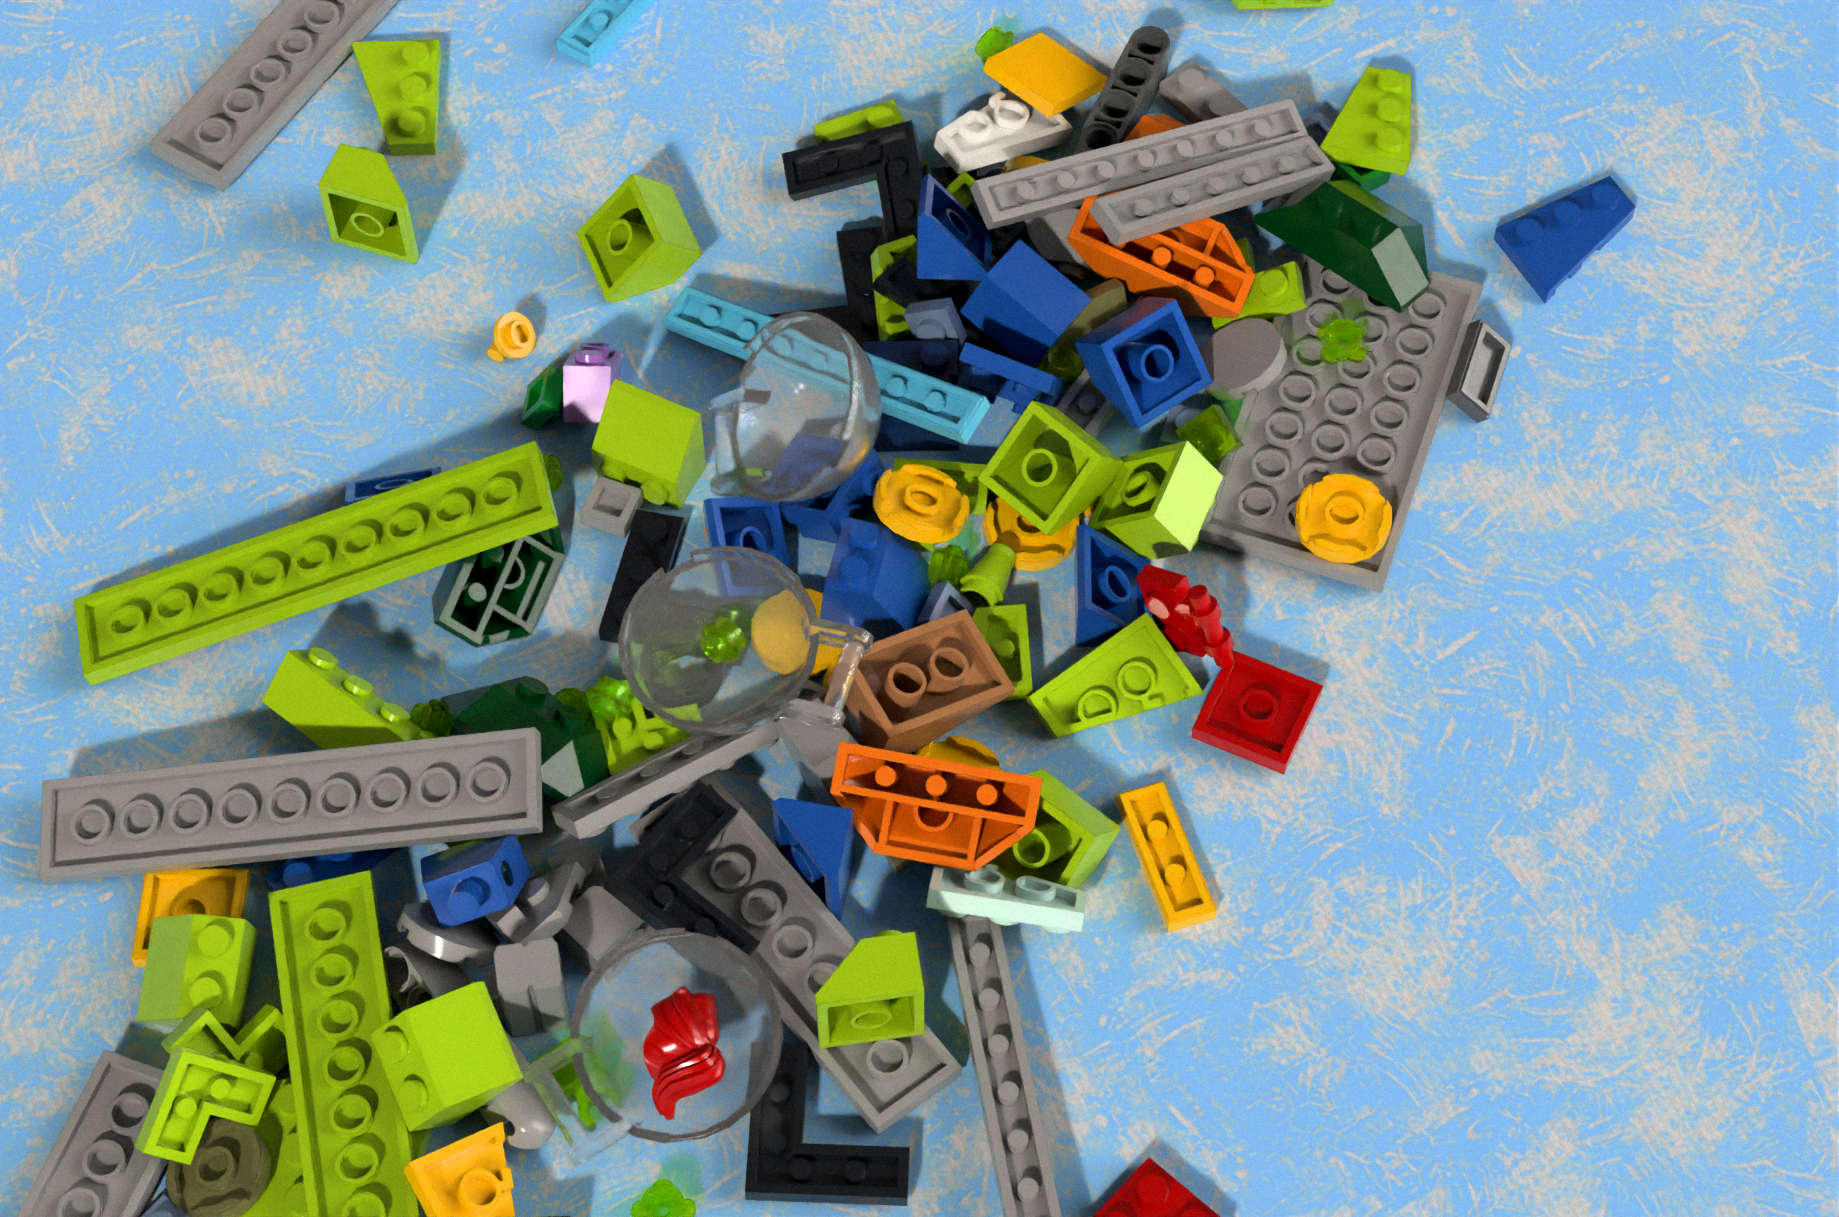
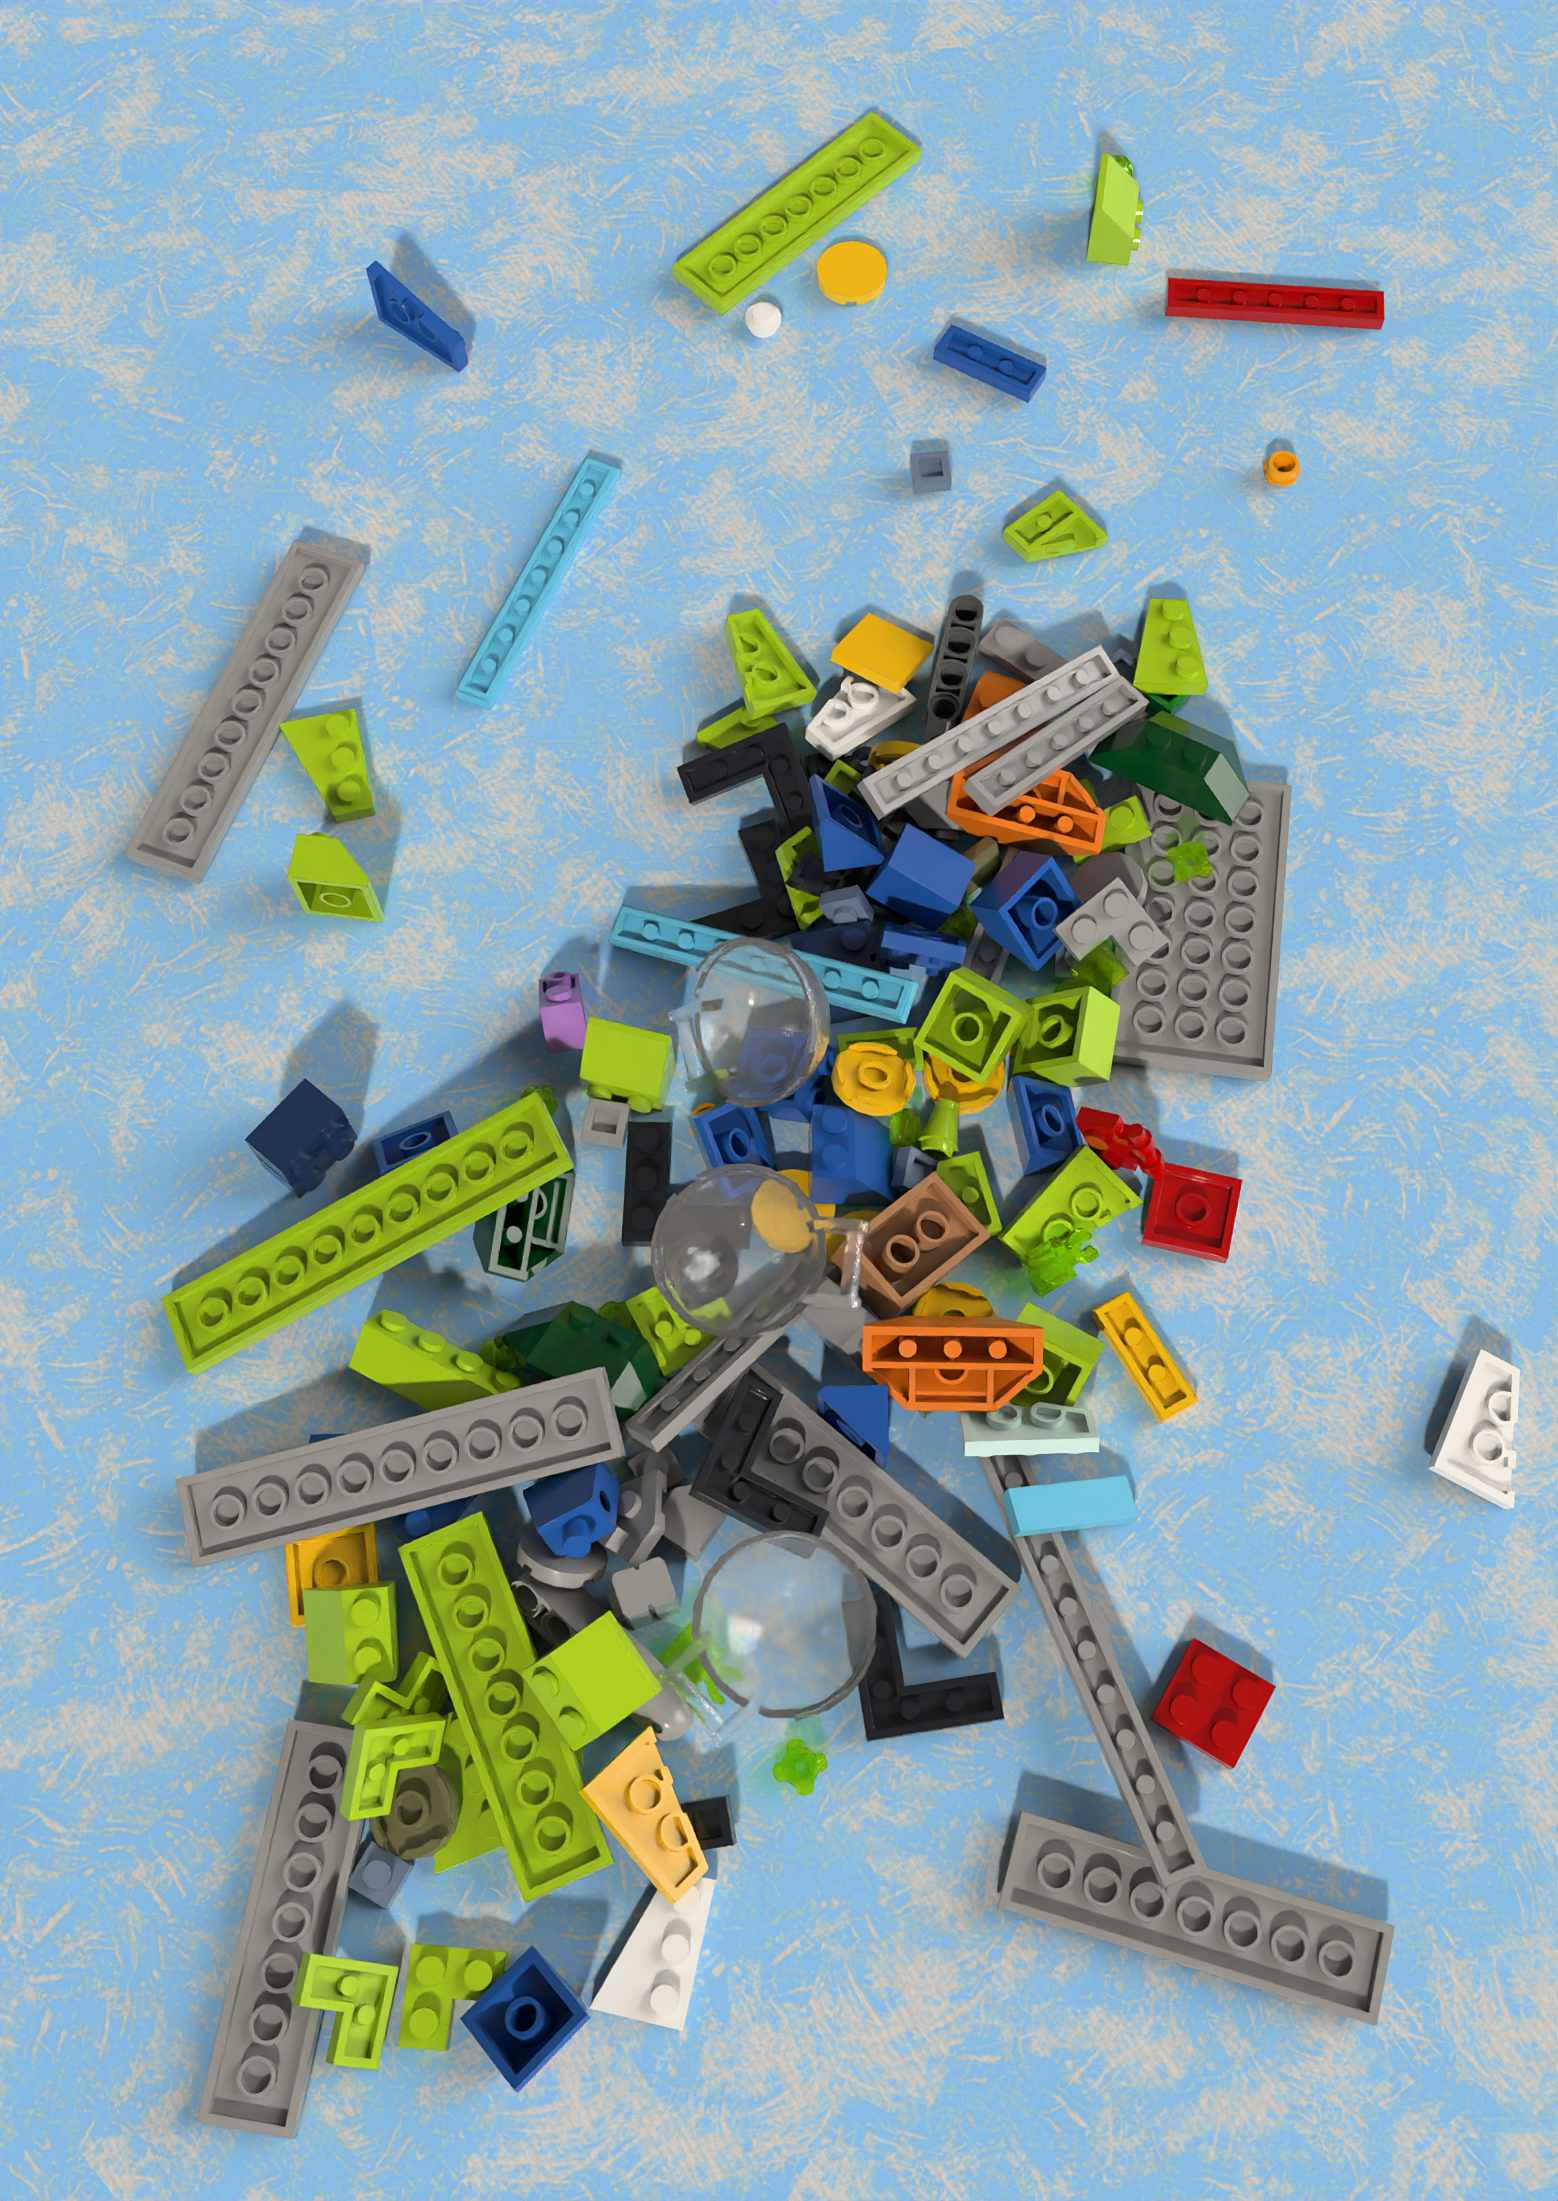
camera: 10 degrees left, 10 degrees up
(269, 459) = (302, 1138): none -> dark blue piece
(512, 337) = (484, 979): yellow plate -> none
(543, 398) = (524, 1032): green plate -> none
(610, 698) = (649, 1308): clear neon green plate -> none
(638, 239) = (571, 869): lime slope -> none
(682, 1048) = (792, 1632): red hair -> none
(722, 640) = (735, 1241): clear neon green plate -> none
(873, 993) = (946, 1545): lime slope -> none
(908, 68) = (764, 666): none -> lime wing
(993, 42) = (832, 632): clear neon green plate -> none
(1037, 988) = (1070, 1505): none -> medium azure tile
(1082, 735) = (1053, 1261): none -> clear neon green plate
(1234, 377) = (1111, 914): none -> light grey plate
(1343, 518) = (1226, 1024): yellow tile -> none
(1478, 371) = (1304, 864): dark grey tile -> none
(1538, 1002) = (1478, 1432): none -> white wing
(1561, 235) = (1343, 724): blue wing -> none

